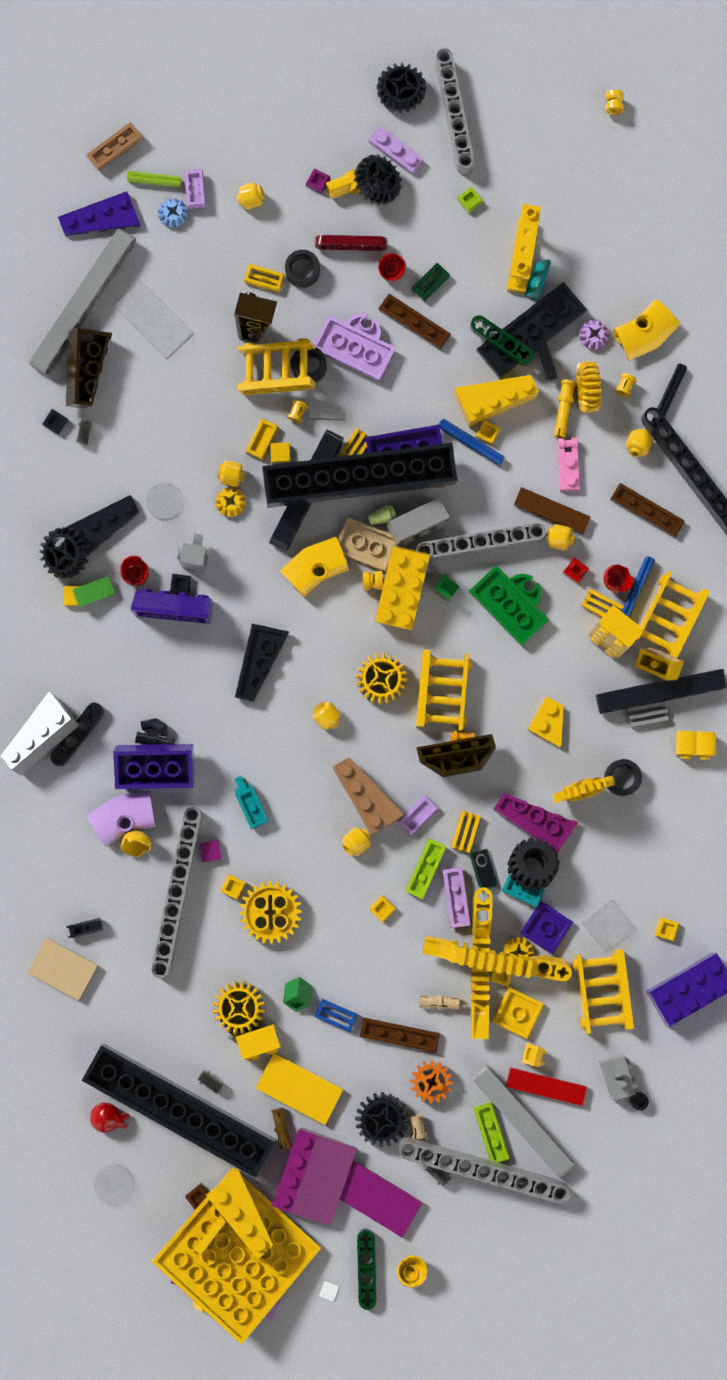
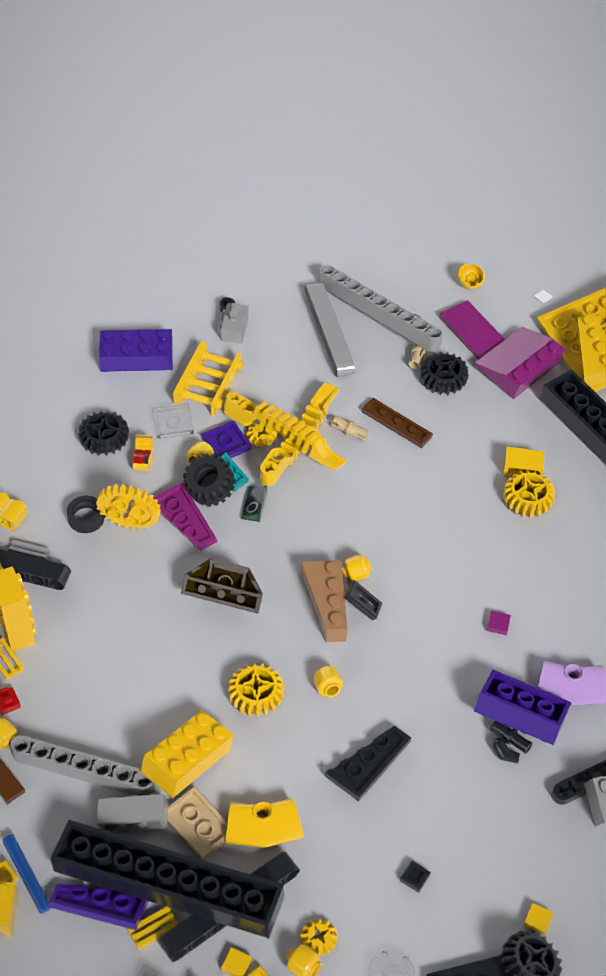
camera: 150 degrees left, 30 degrees down
(93, 591) = (514, 909): bright green tile -> none
(134, 571) = (460, 907): red hair -> none
(136, 843) = (567, 655): yellow hair -> none
(170, 900) = (585, 555): light grey beam -> none
(172, 607) = (436, 848): dark purple slope -> none
(194, 556) = (388, 887): light grey brick -> none
(210, 1081) = (582, 458): clear smoke pin -> none
(233, 887) = (490, 586): yellow tile -> none
(250, 804) = (441, 642): teal hinge -> none
(252, 912) = (455, 541): yellow gear -> none
(281, 1128) = (532, 402): pearl gold pin -> none
(297, 994) = (471, 482): green panel -> none
(299, 1088) = (503, 421): yellow tile -> none
(321, 1008) = (442, 458): blue tile -> none
(345, 805) = (362, 603): none -> black tile
(366, 1269) = (507, 295): dark green beam -> none
(368, 580) = (212, 781): yellow wheel -> none
(382, 515) = (165, 840): yellowish green cone -> none
(382, 908) = (361, 513): yellow tile -> none
(418, 815) = (285, 568): lavender tile -> none
(425, 698) = (214, 668): yellow fence -> none
(425, 868) = (305, 523): lime plate -> none
(443, 1087) = (388, 379): orange gear -> none
(445, 588) = (143, 741): green panel -> none
(456, 897) = (291, 492): lavender plate -> none
(461, 735) = (207, 607): light orange pin -> none
(470, 816) = (249, 535): yellow tile -> none
(491, 1132) = (358, 333): lime tile -> none
(510, 603) = (88, 699): green plate -> none
(517, 1012) = (288, 395): yellow tile -> none
(533, 1055) = (293, 362): yellow tile -> none
(546, 1086) = (295, 343): red tile -> none
(548, 722) = (121, 587): yellow wing -> none
(559, 894) = (199, 448): none -> yellow head
(611, 869) = (143, 452): none -> yellow leg
(665, 882) = (103, 433): none -> black gear
(666, 929) = (126, 399): yellow tile -> none

